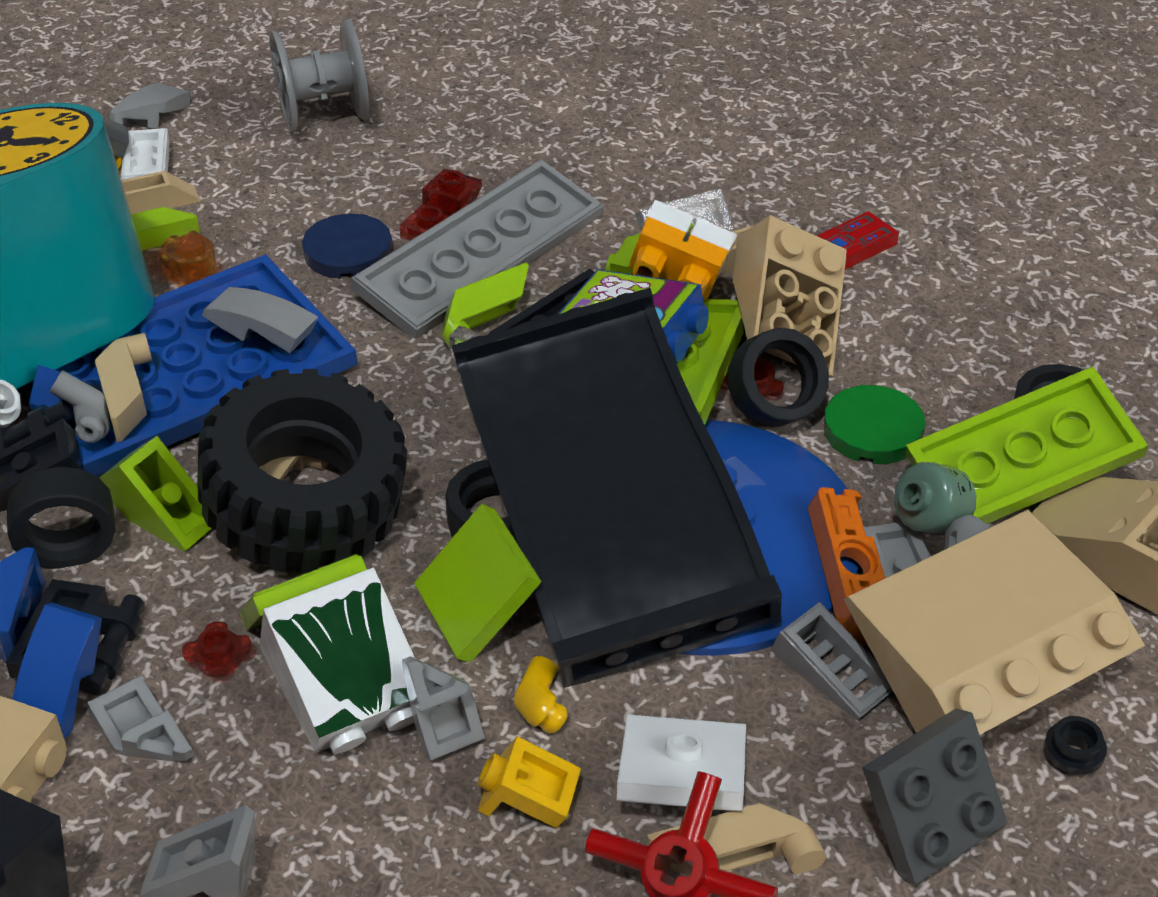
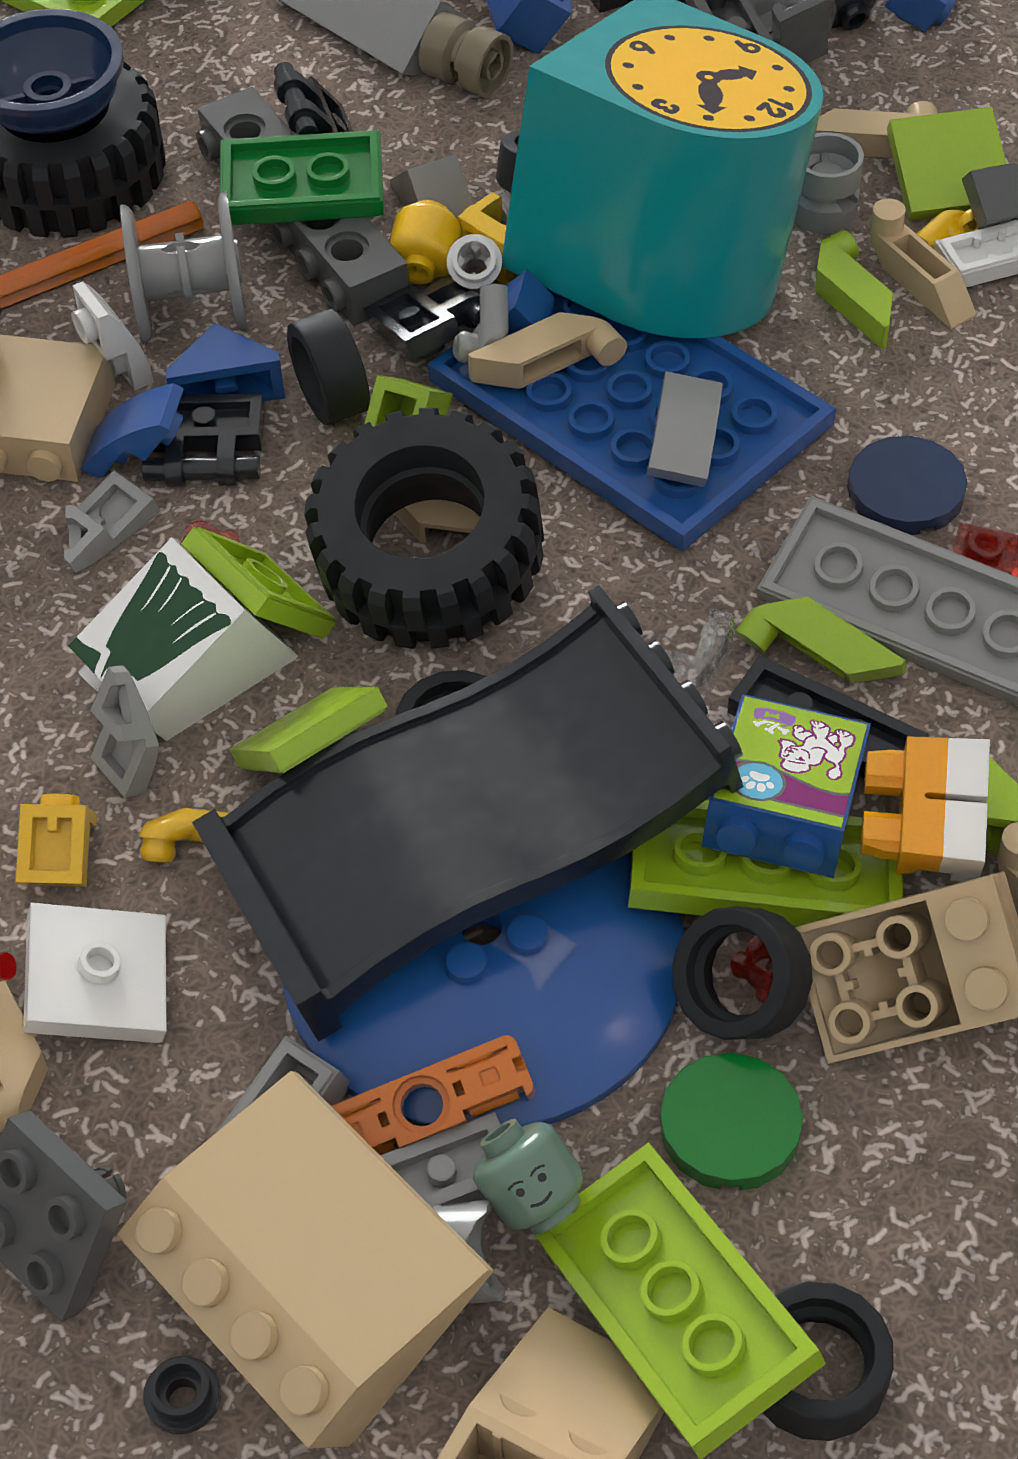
camera: 80 degrees right, 10 degrees up
(187, 258) = (810, 348): clear orange plate -> none

